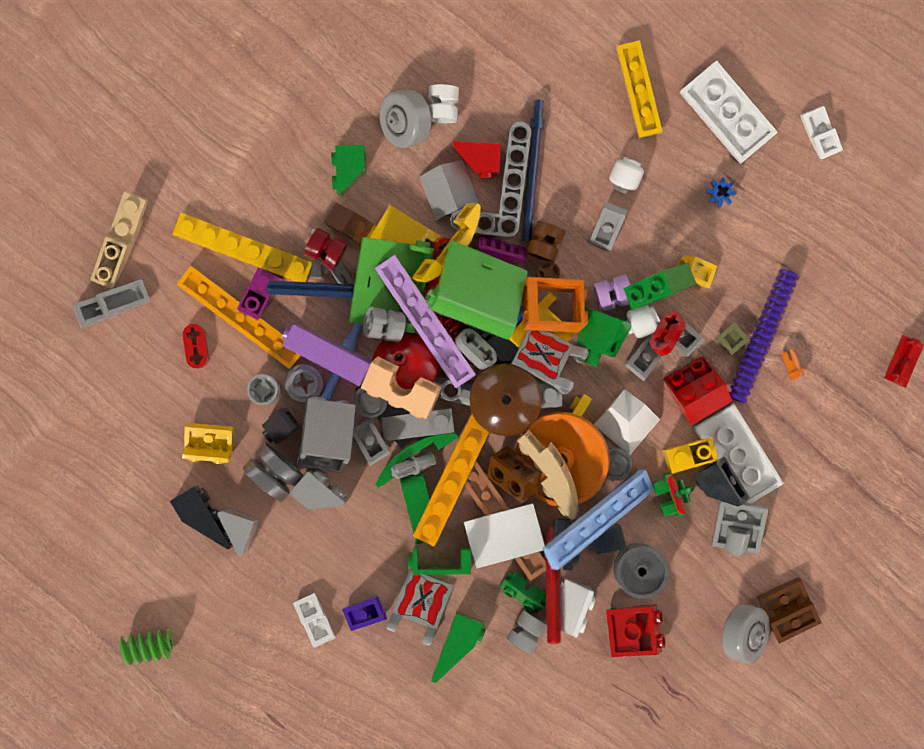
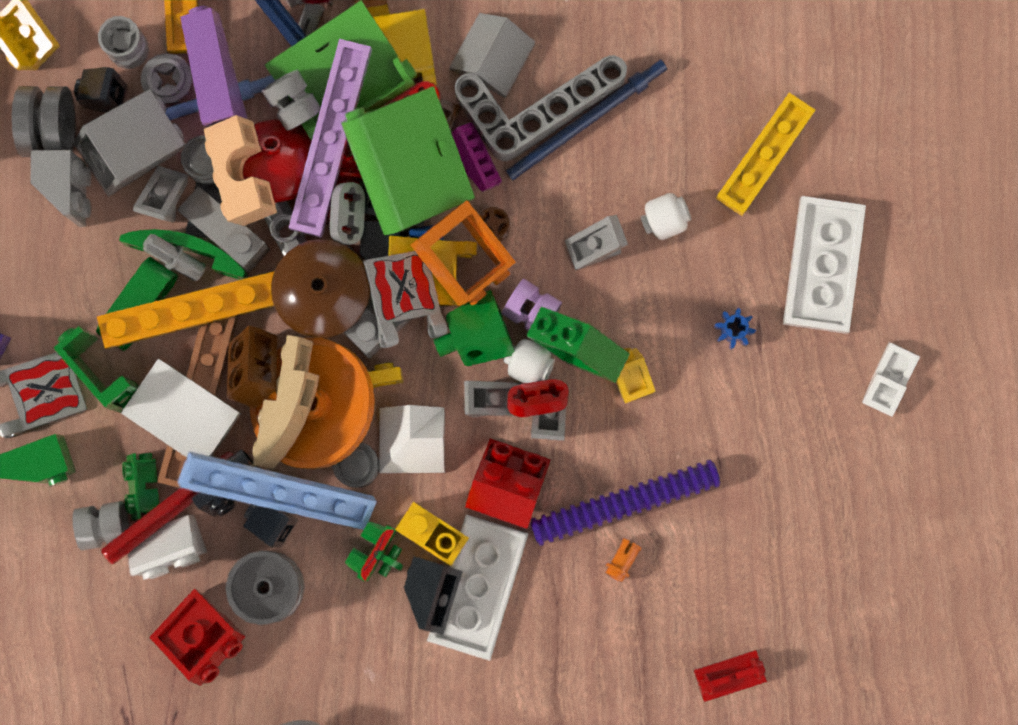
camera: 50 degrees right, 5 degrees down
(467, 221) = (470, 92): yellow slope -> none
(480, 157) = (553, 56): red slope -> none
(542, 249) = (513, 197): reddish brown wheel -> none
(732, 338) = (594, 473): olive plate -> none
(739, 527) = (401, 653): light grey plate -> none

